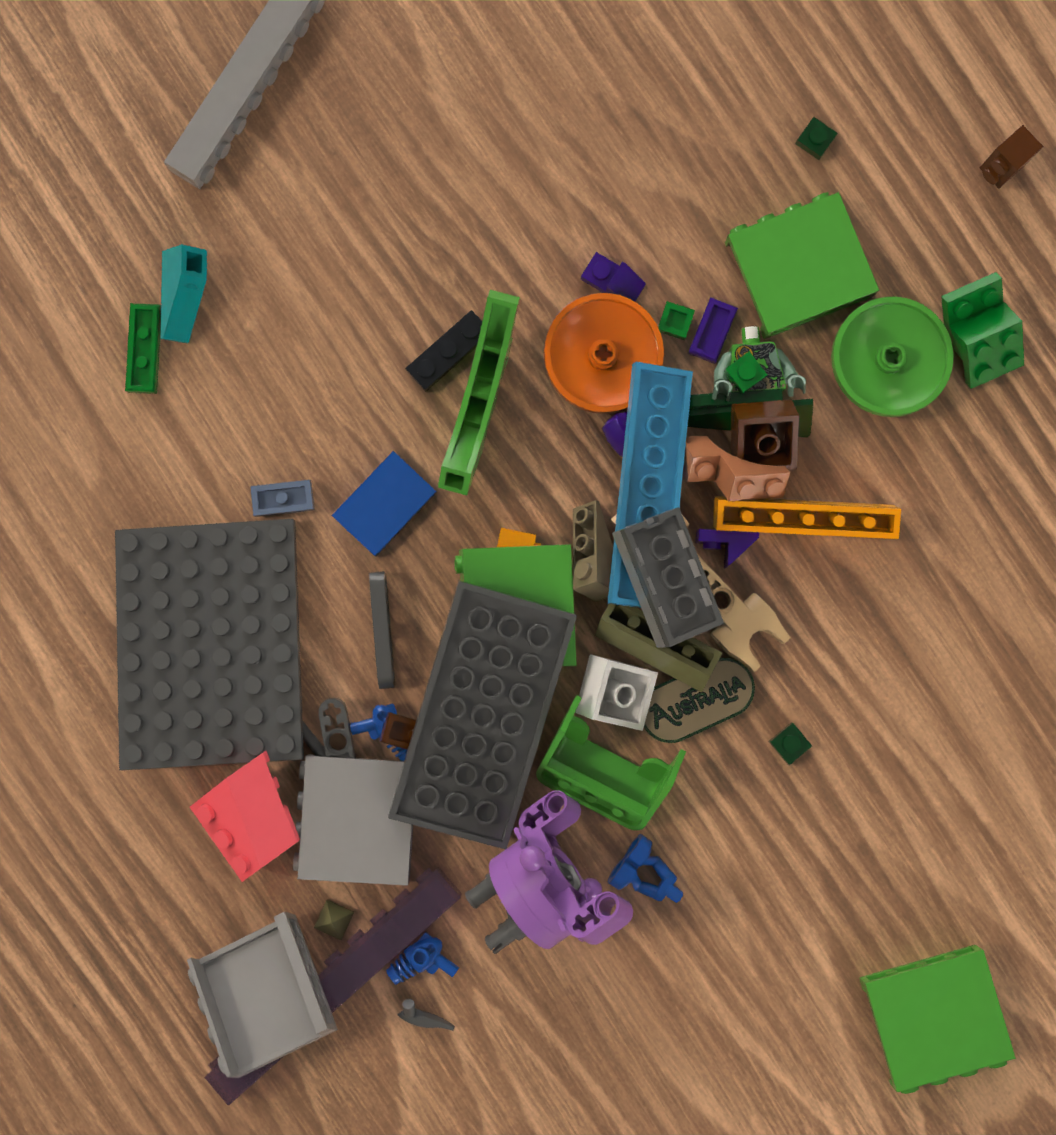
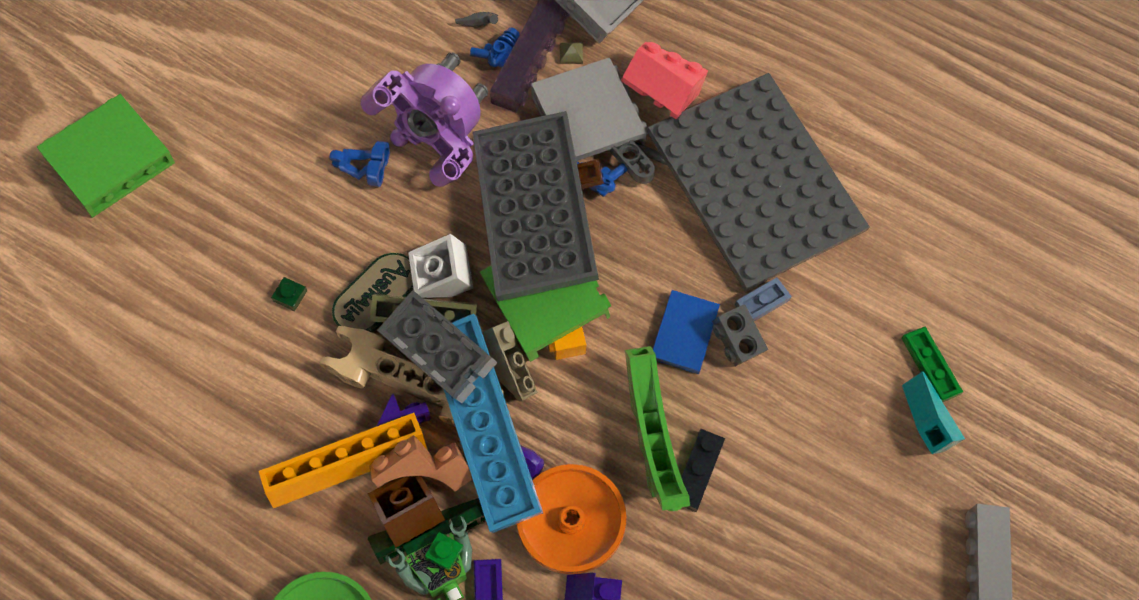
camera: 150 degrees right, 20 degrees down
(325, 467) = (746, 332): none -> dark grey brick
(382, 630) = (638, 241): dark grey beam -> none
(602, 778) = (421, 211): bright green windscreen -> none
(676, 320) = (523, 579): green plate -> none

